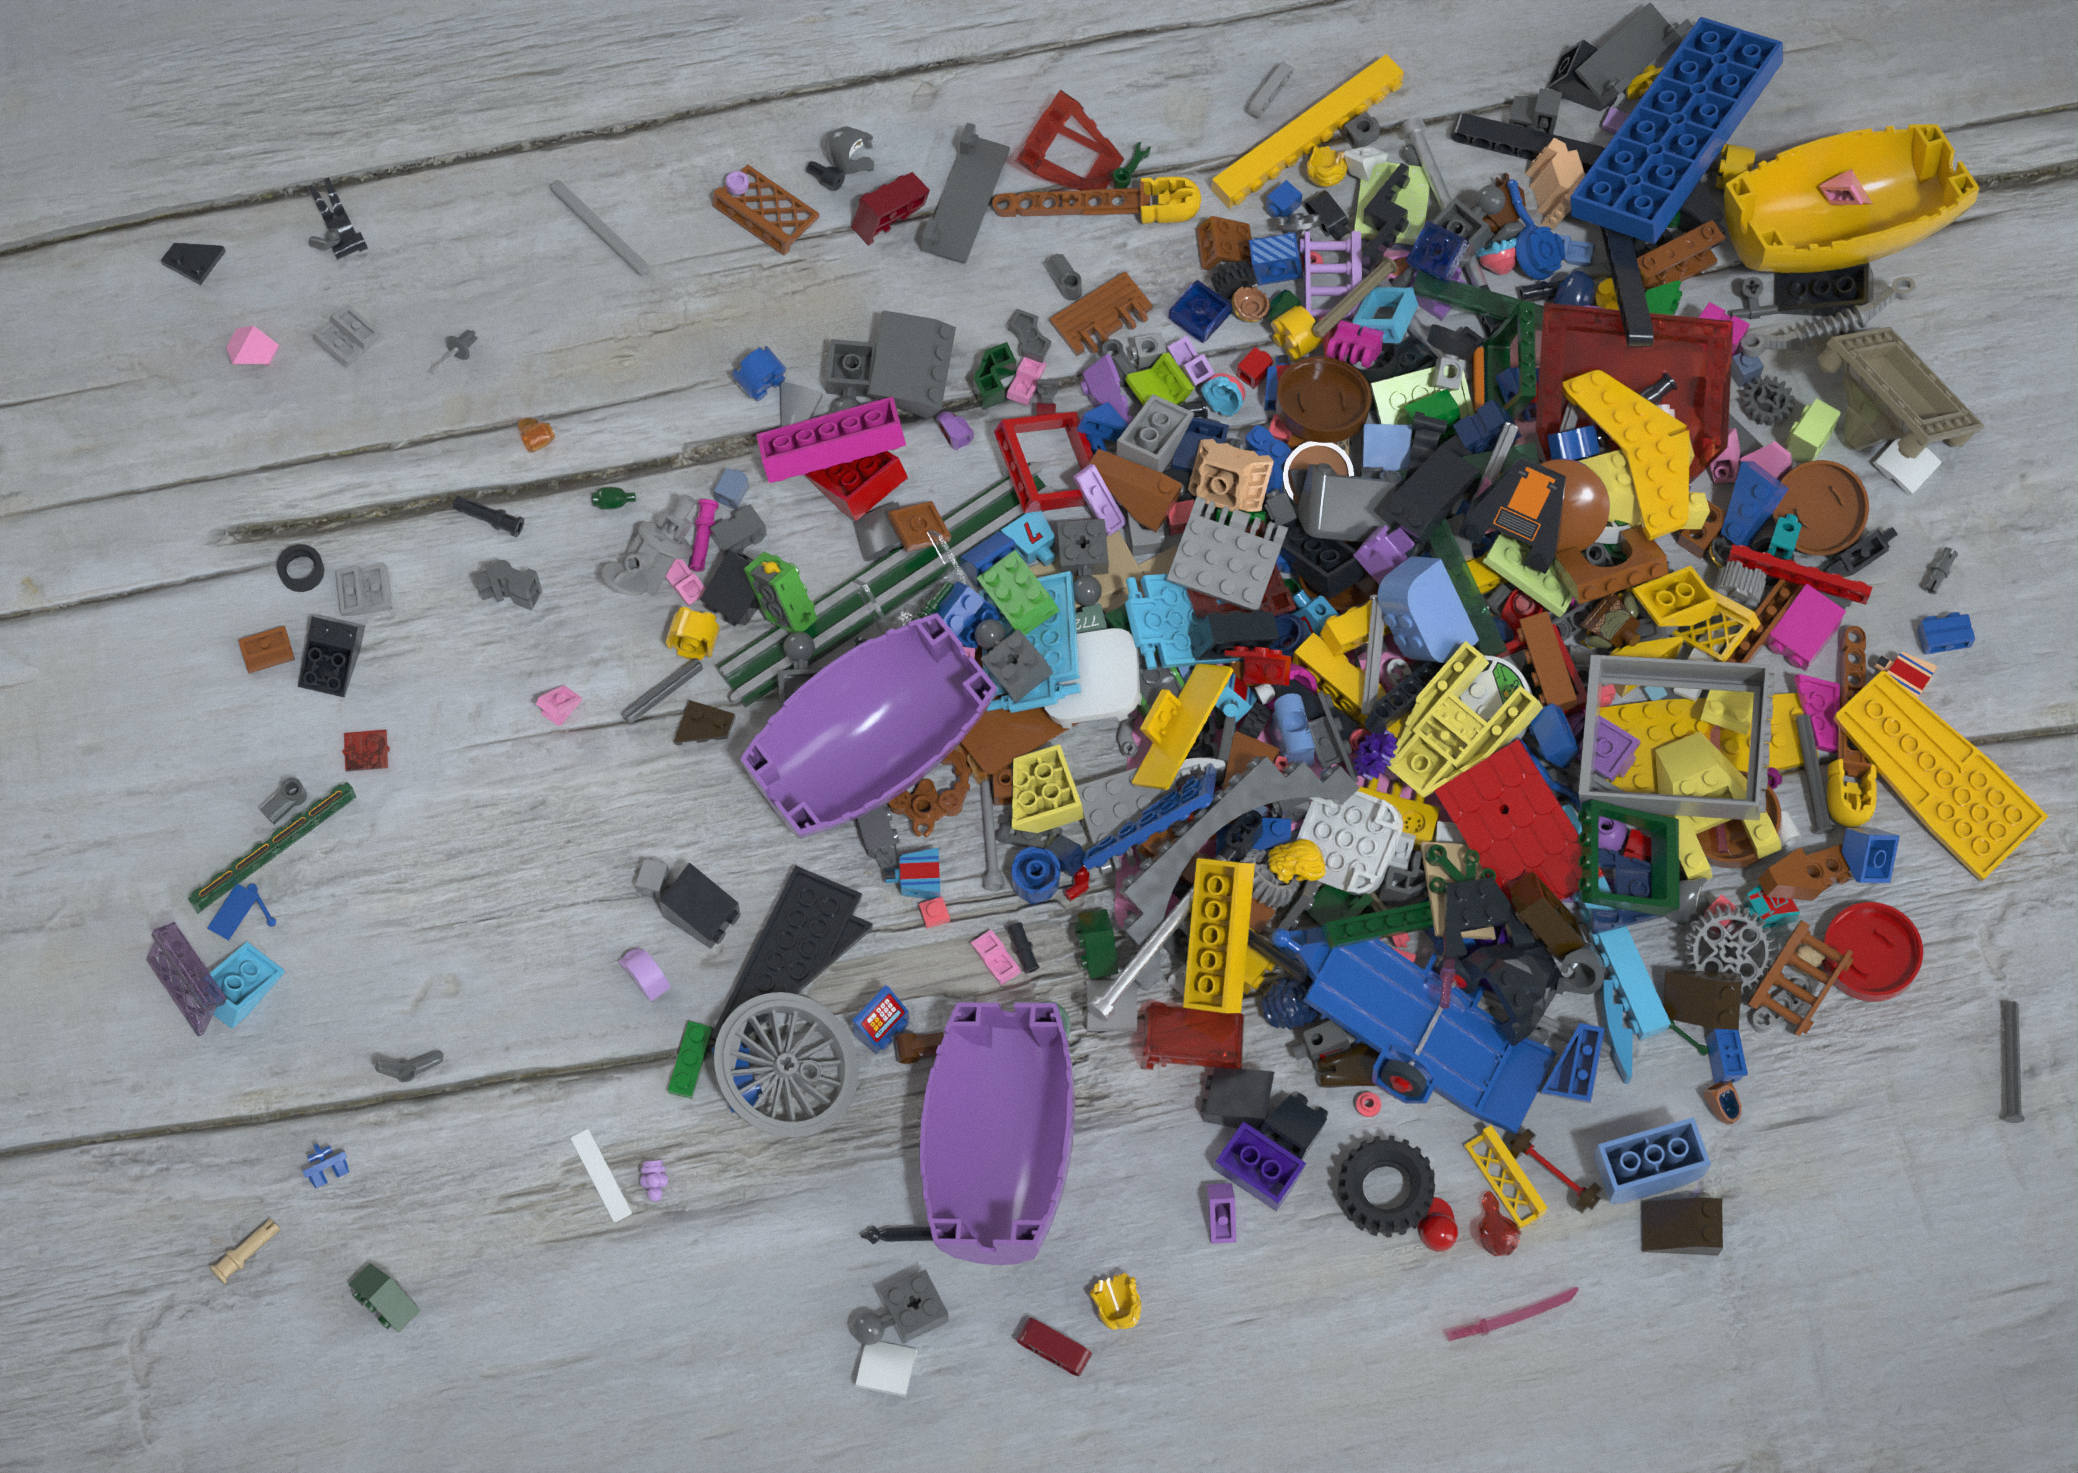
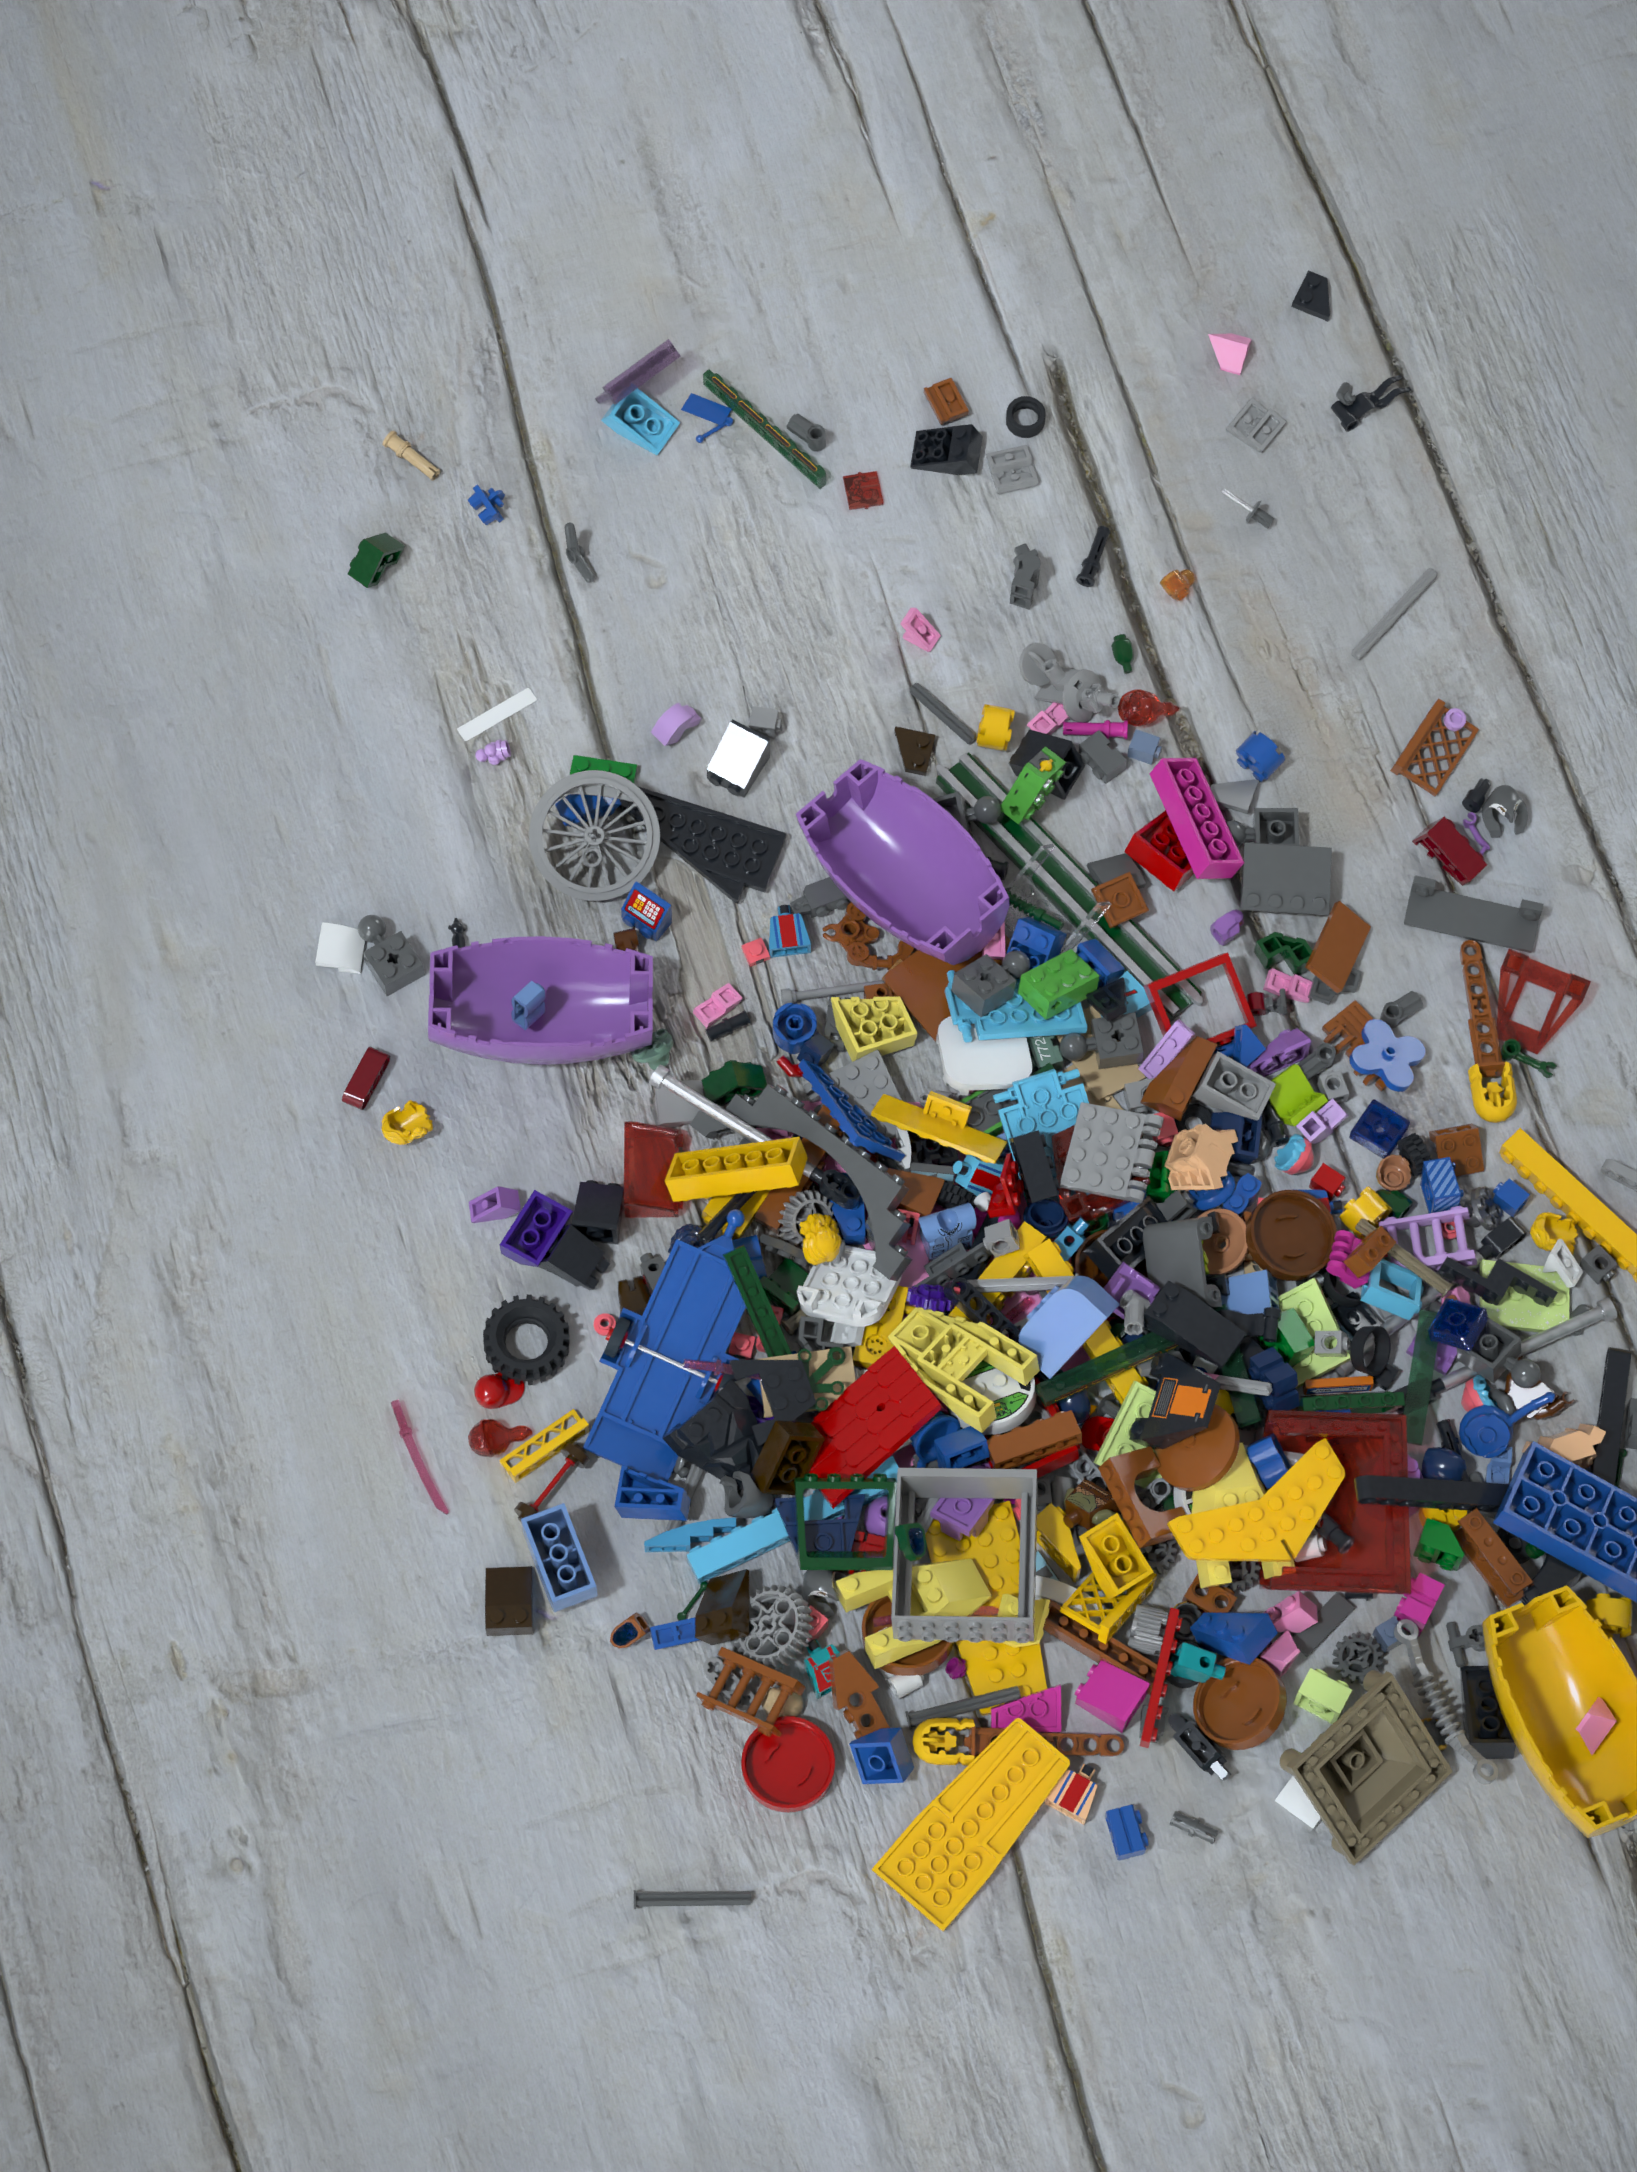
camera: 85 degrees right, 0 degrees up
(684, 480) = (1143, 707): none -> clear red piece
(871, 182) = (1471, 825): none -> medium lavender piece
(993, 322) = (1338, 946): none -> dark orange tile
(994, 1149) = (528, 1005): none -> medium blue brick
(1041, 544) = (1110, 999): none -> black wing
(1124, 289) = (1387, 1055): none -> plant
(1317, 673) = (1001, 1238): none -> light grey brick
(1356, 321) = (1369, 1252): none -> dark orange brick
(1411, 547) = (1134, 1307): none -> light grey piece
(1670, 780) = (911, 1540): none -> dark green rock

